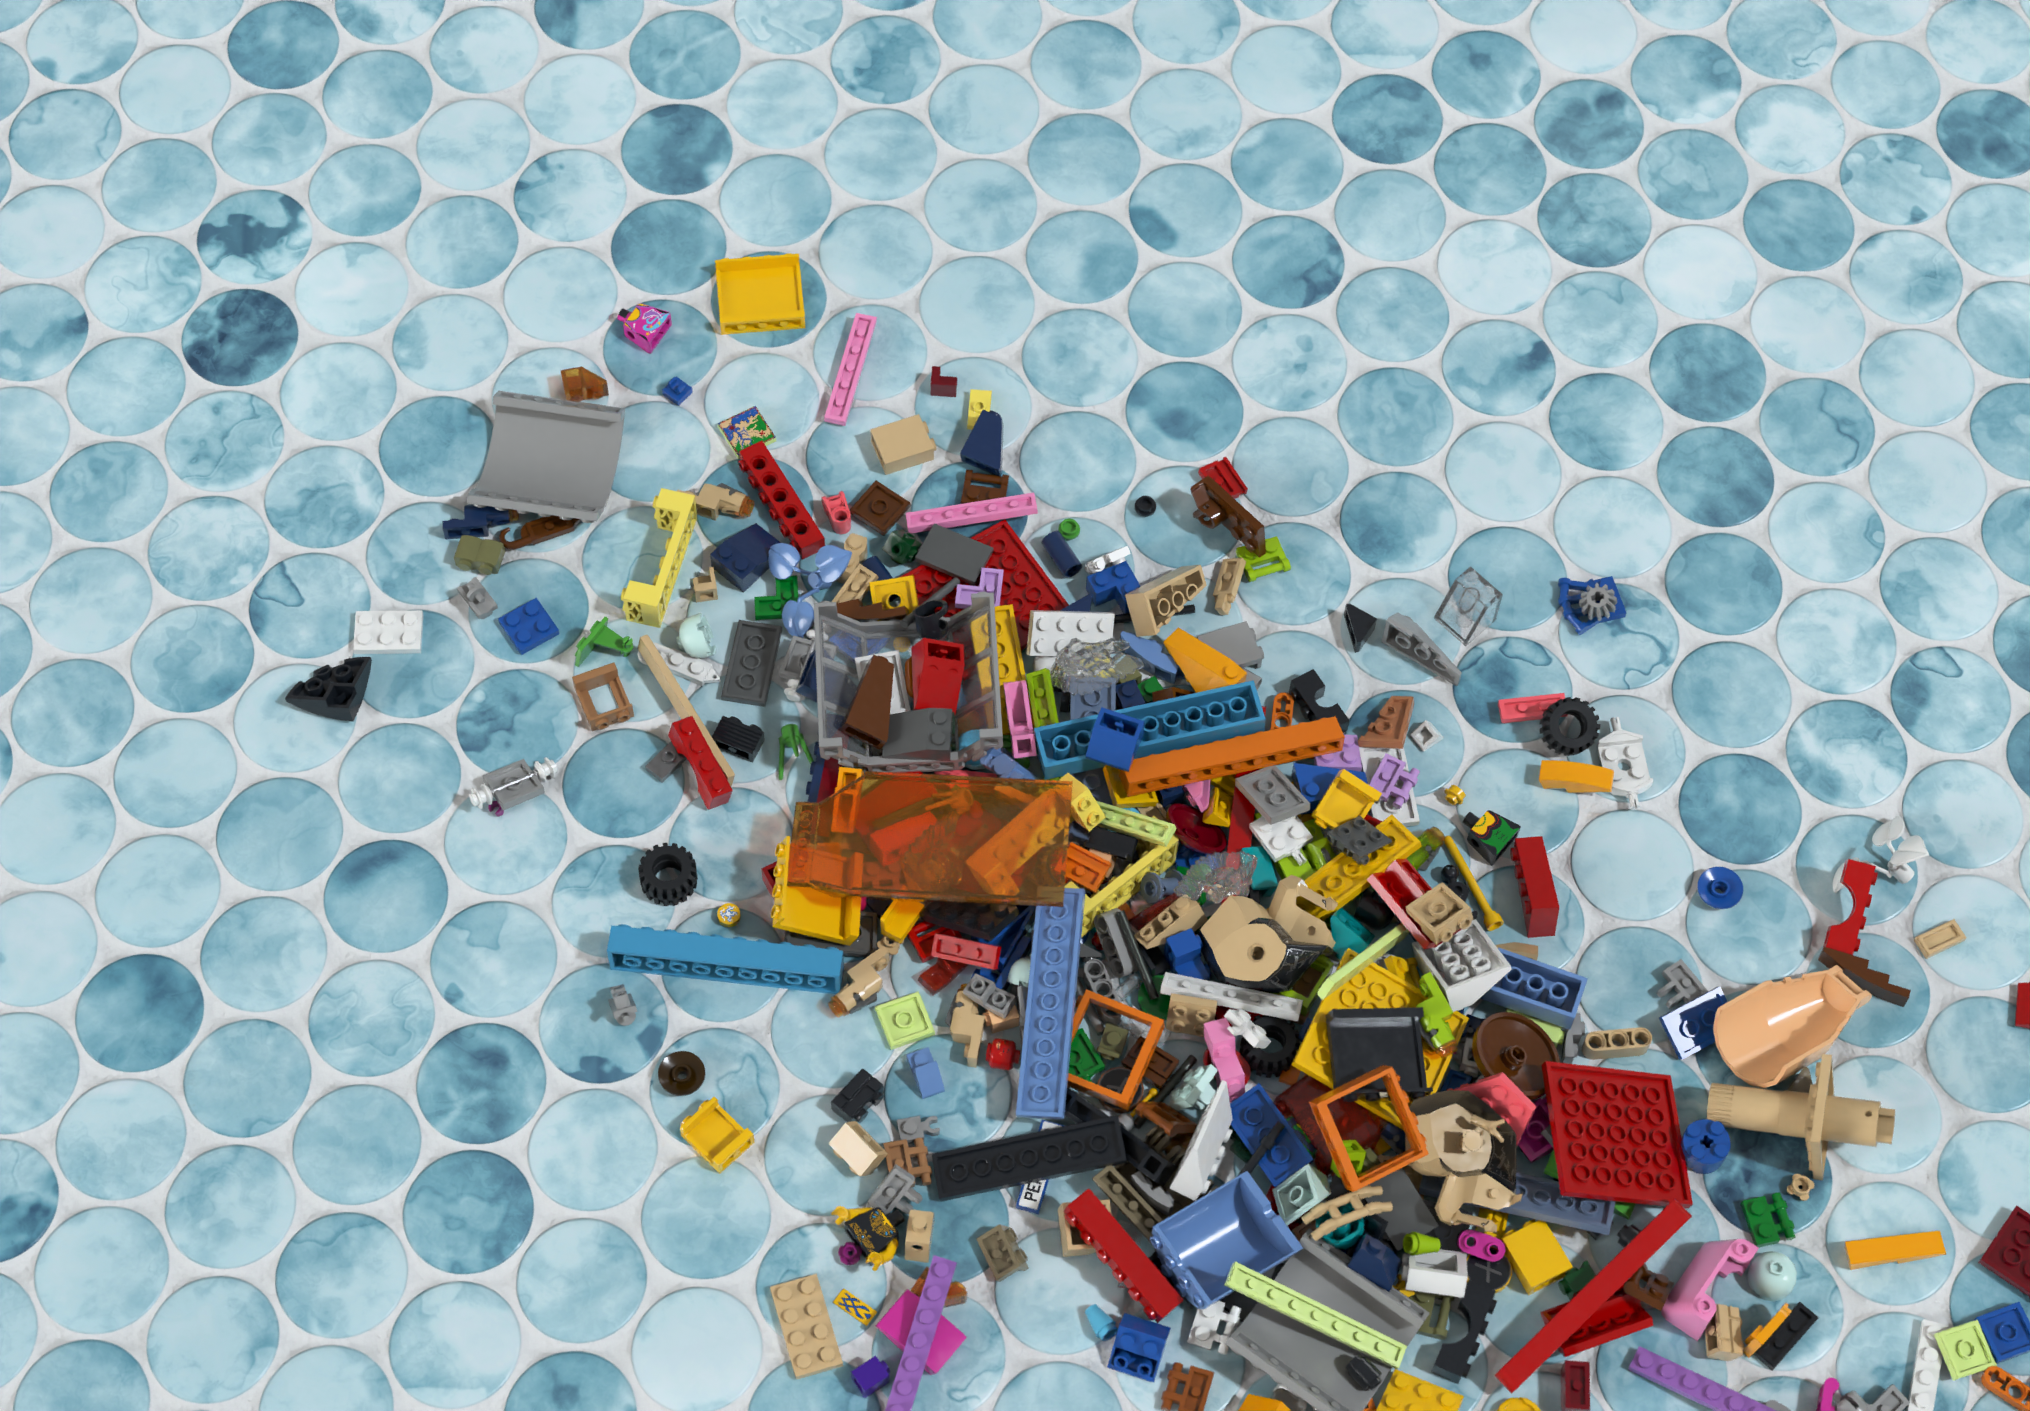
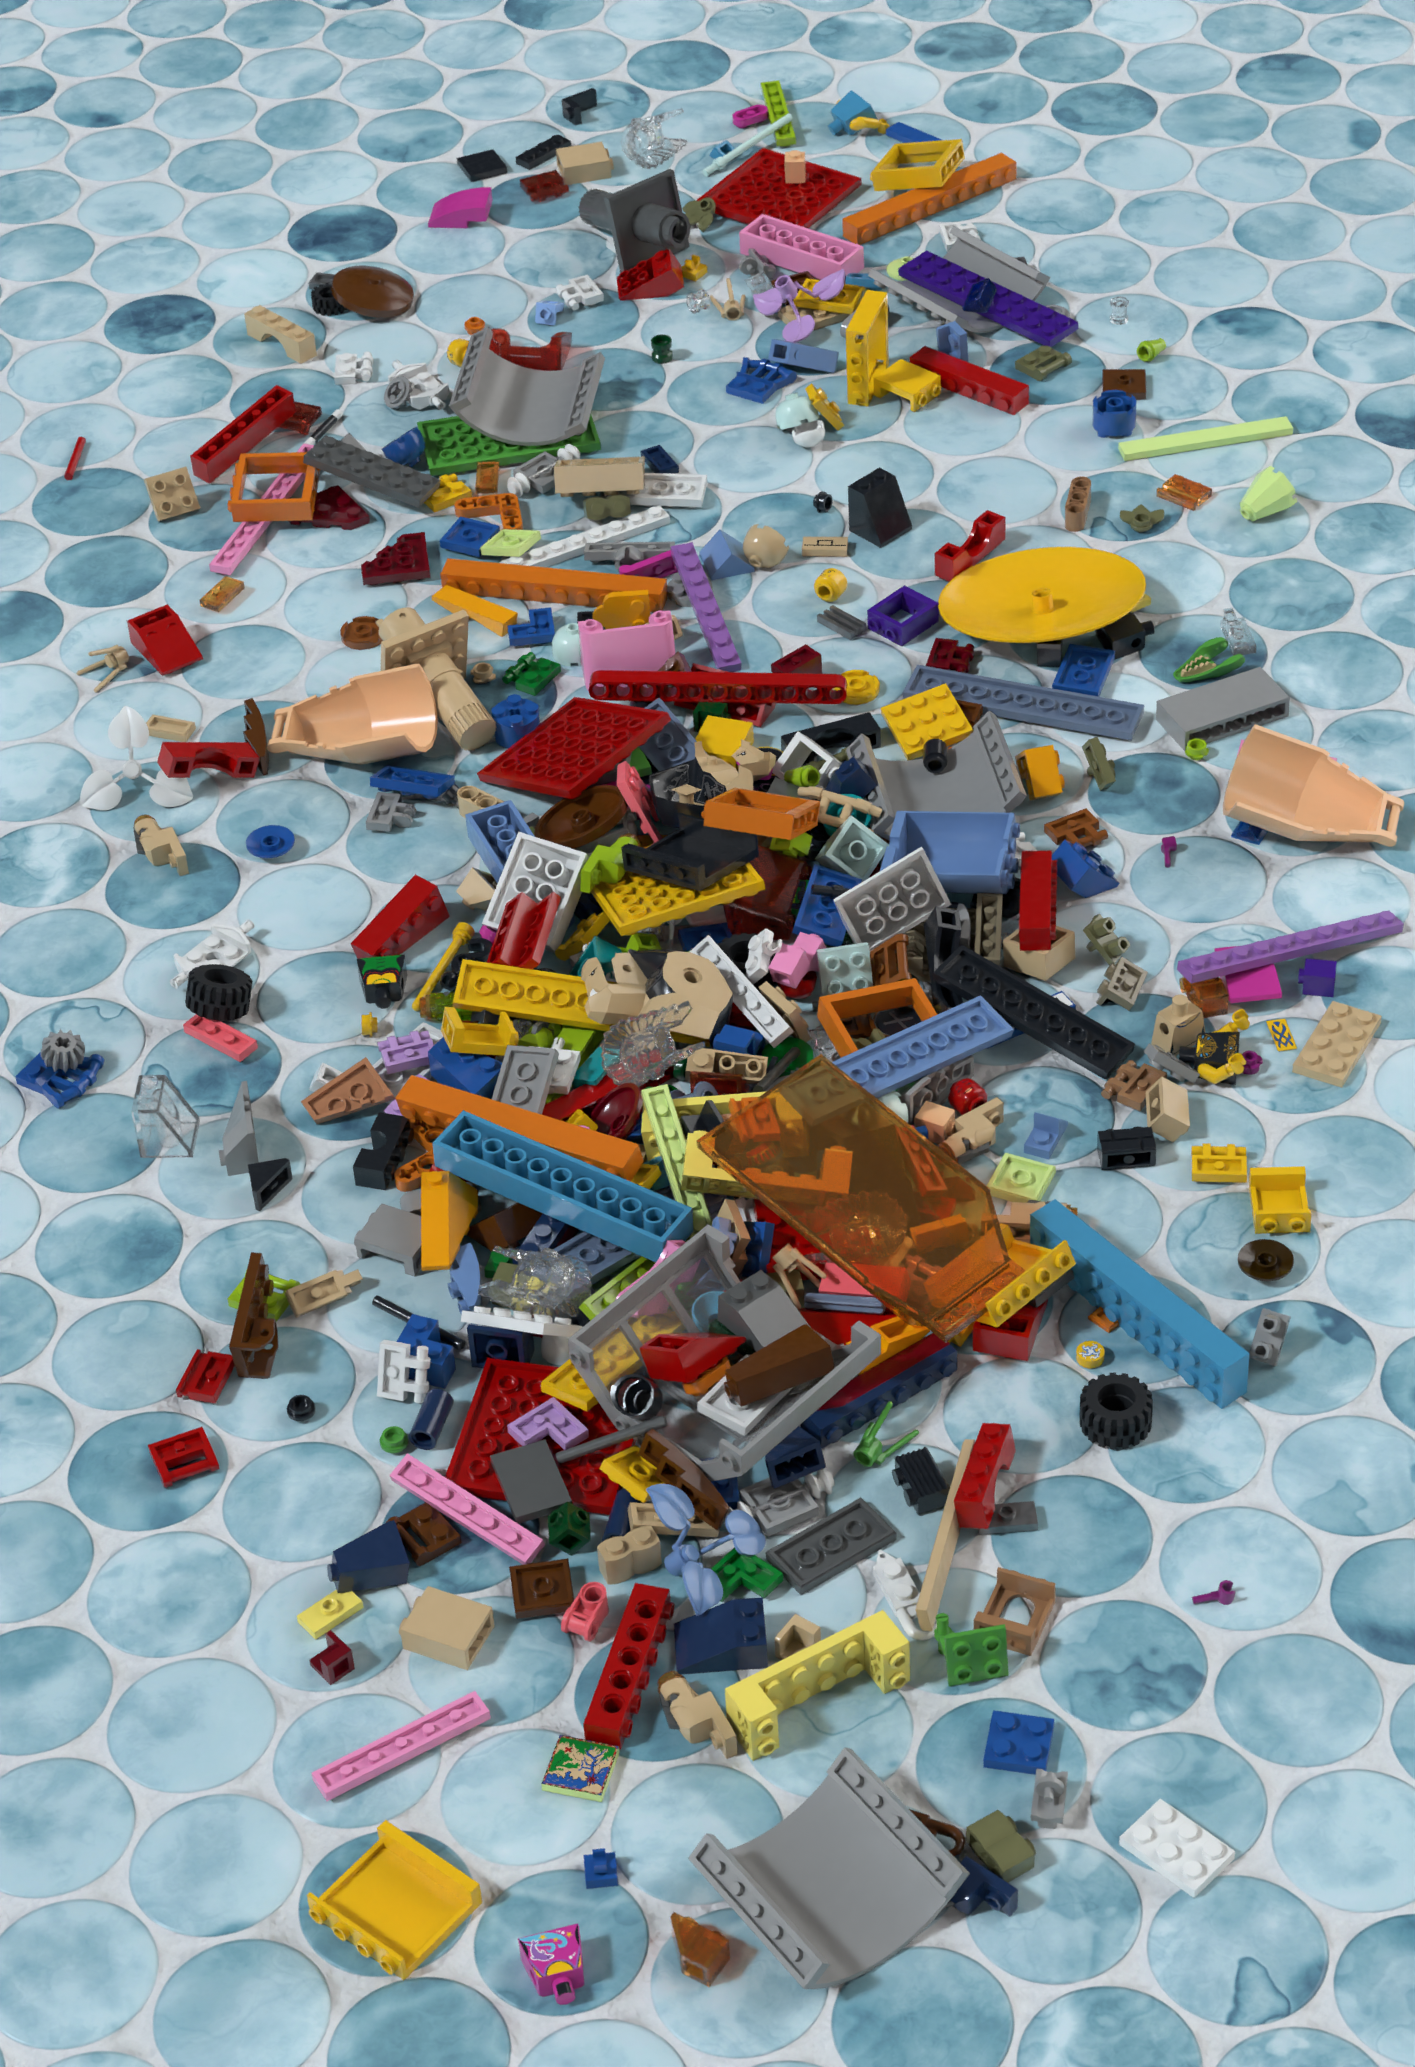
camera: 130 degrees left, 20 degrees down
(334, 690) = (1292, 1825): black brick -> none
(513, 784) = (1189, 1590): light grey plate -> none
(696, 637) = (864, 1591): light aqua cylinder -> none
(782, 1133) = (1219, 1163): none -> yellow plate
(913, 1128) = (1098, 1106): light grey plate -> none
(989, 996) = (934, 1121): light grey slope -> none
(1050, 1279) = (1104, 939): none -> olive hips
(1101, 1323) = (1094, 900): medium azure cone -> none
(1115, 739) = (610, 1167): blue slope -> none
(1160, 599) = (398, 1295): tan wedge -> none
(1176, 429) = (180, 1450): none -> red plate
(1315, 1315) = (935, 784): yellowish green tile -> none
(1358, 839) = (503, 998): dark grey hinge -> none
(1362, 960) = (623, 895): yellowish green tile -> none
(1440, 913) = (522, 892): tan plate -> none
(1489, 1126) = (663, 786): tan bar -> none
(1575, 776) = (264, 967): light orange slope -> none
(1660, 1040) = (450, 795): none -> black plate
(1788, 821) = (159, 844): none -> tan plate
(1819, 1270) = (537, 631): none -> blue plate
(1869, 1329) = (547, 584): none -> orange brick
(1943, 1156) = (361, 633): none -> dark orange tile

